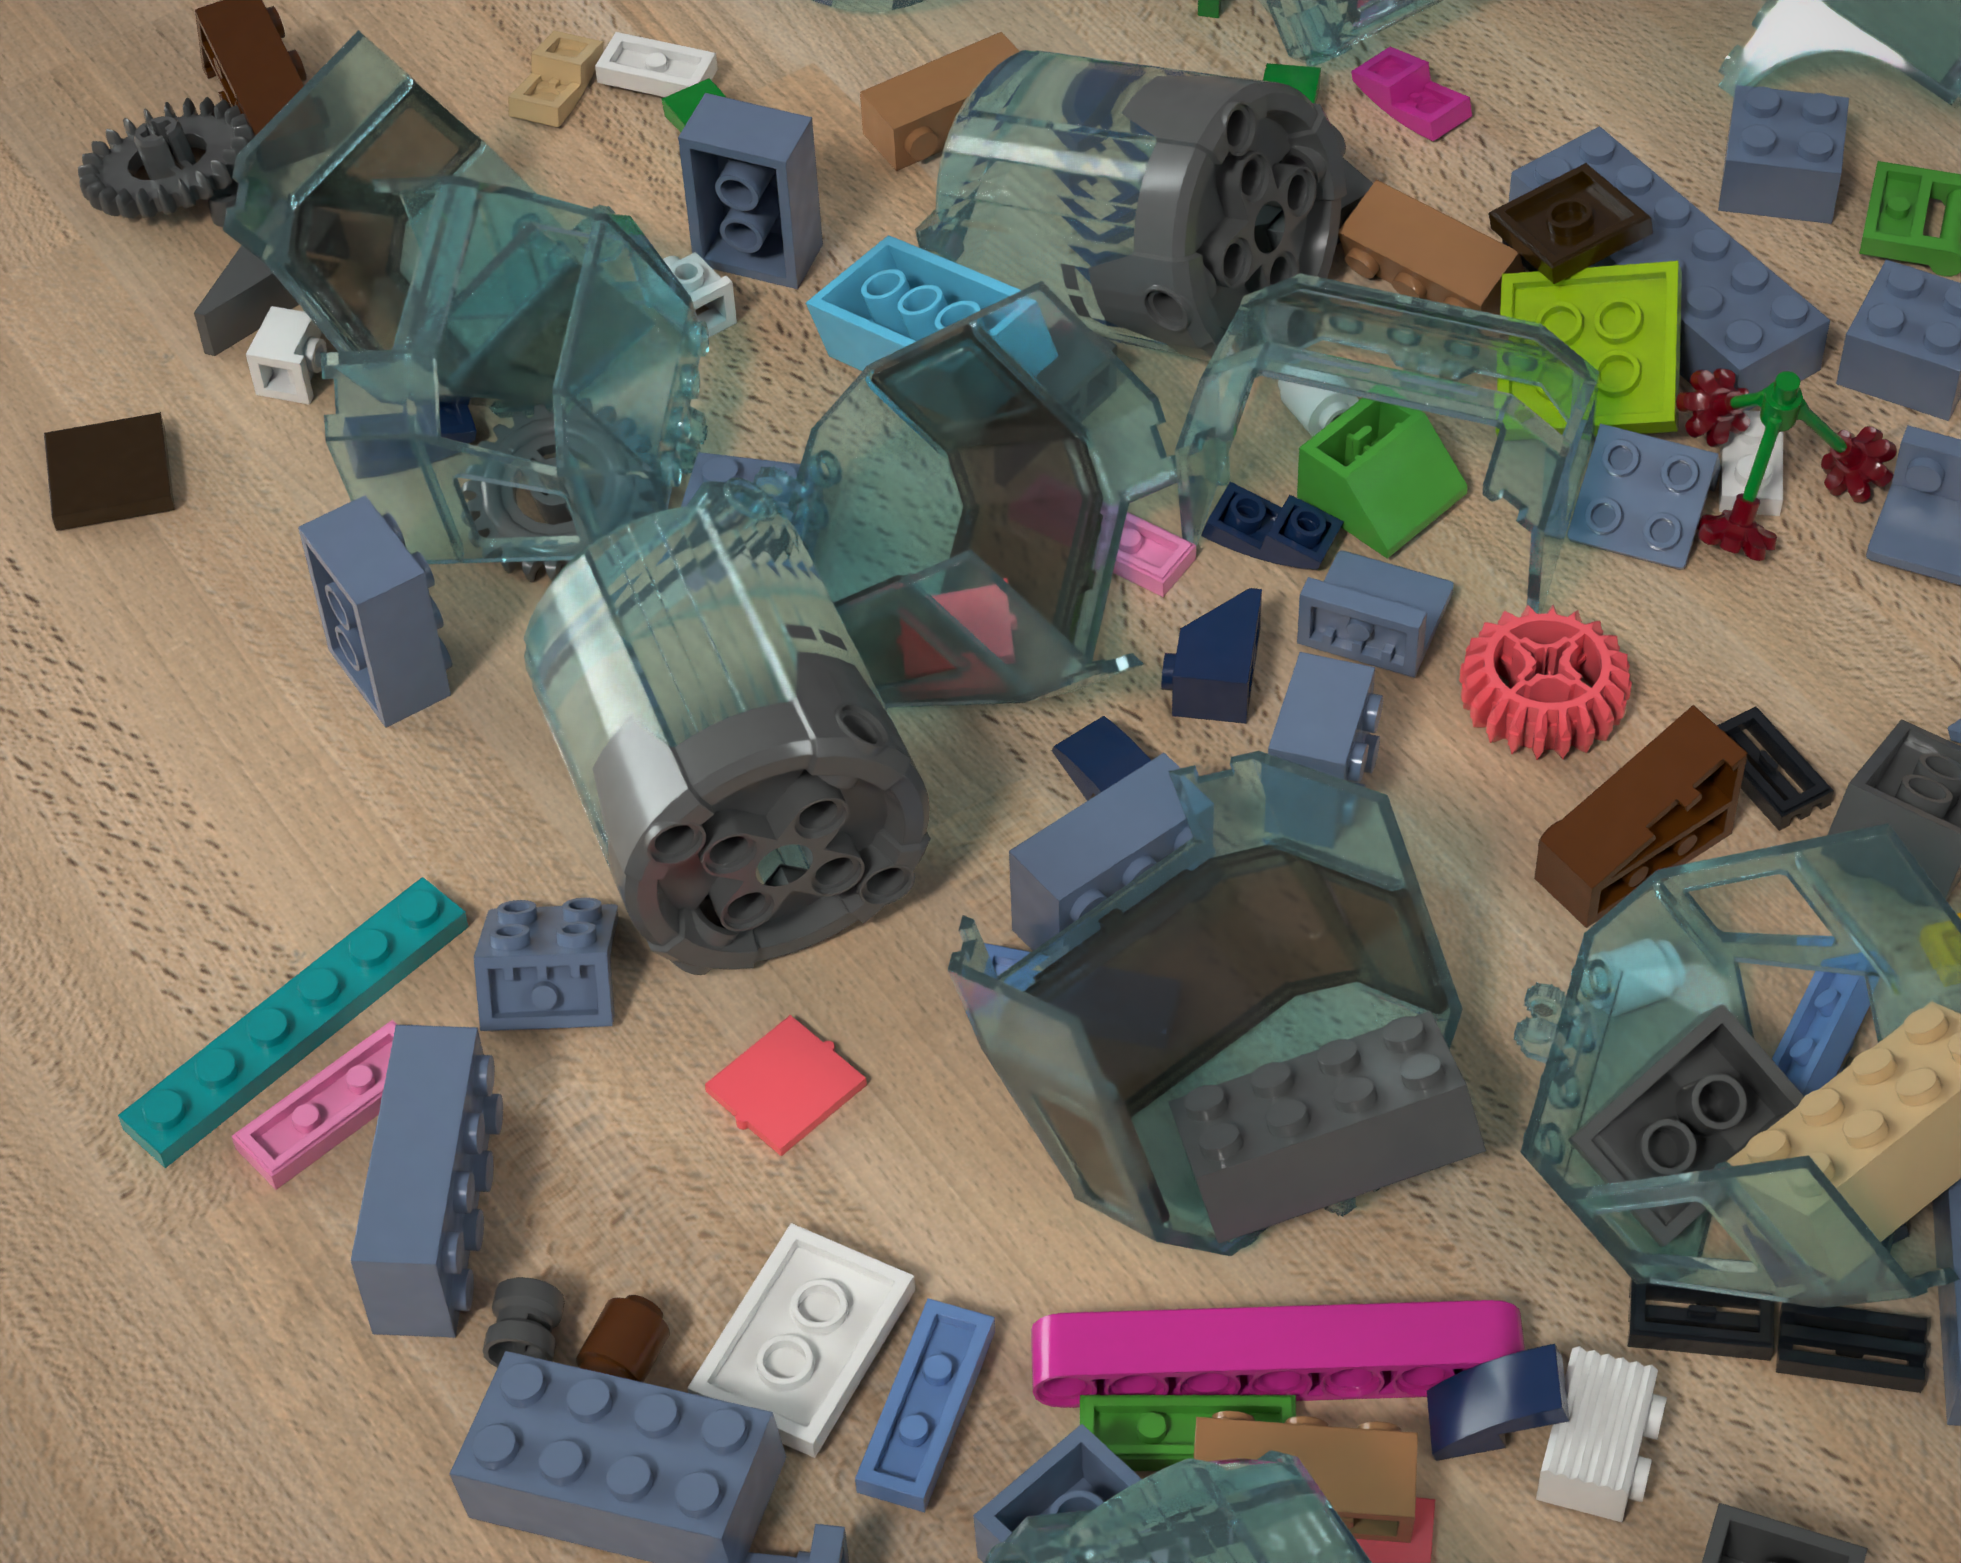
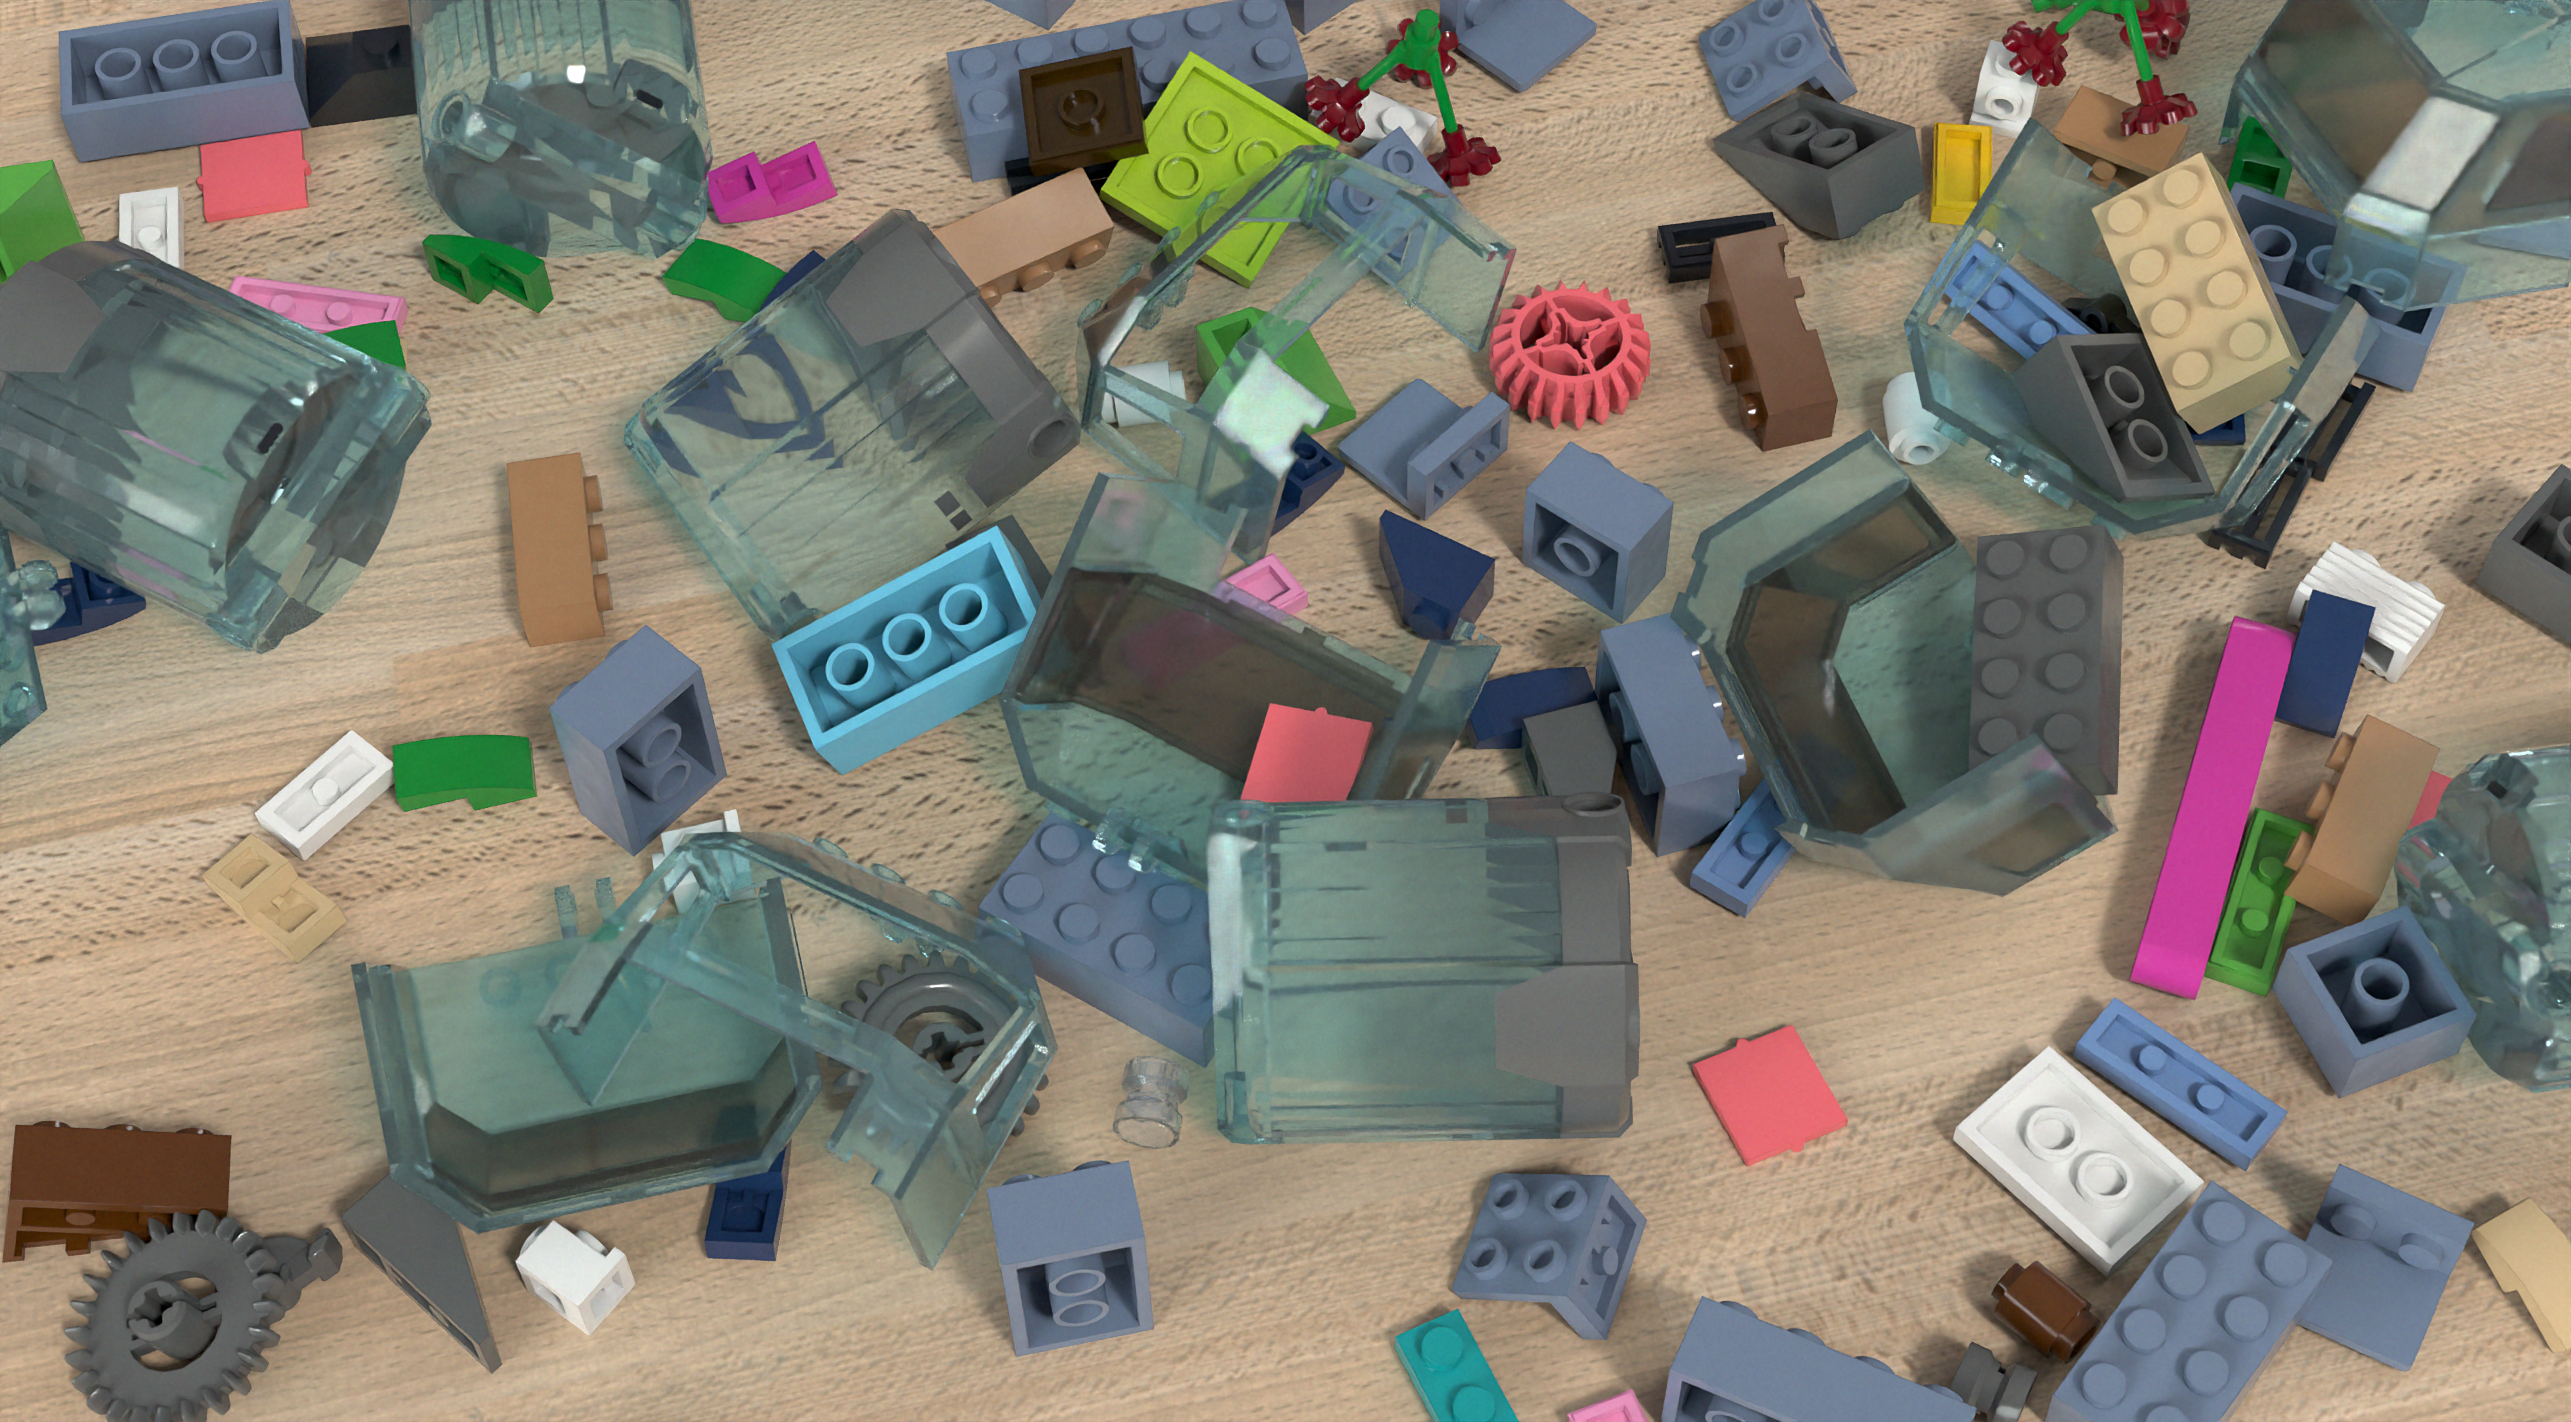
camera: 70 degrees left, 5 degrees up
(978, 853) = (1571, 751): none -> dark grey slope

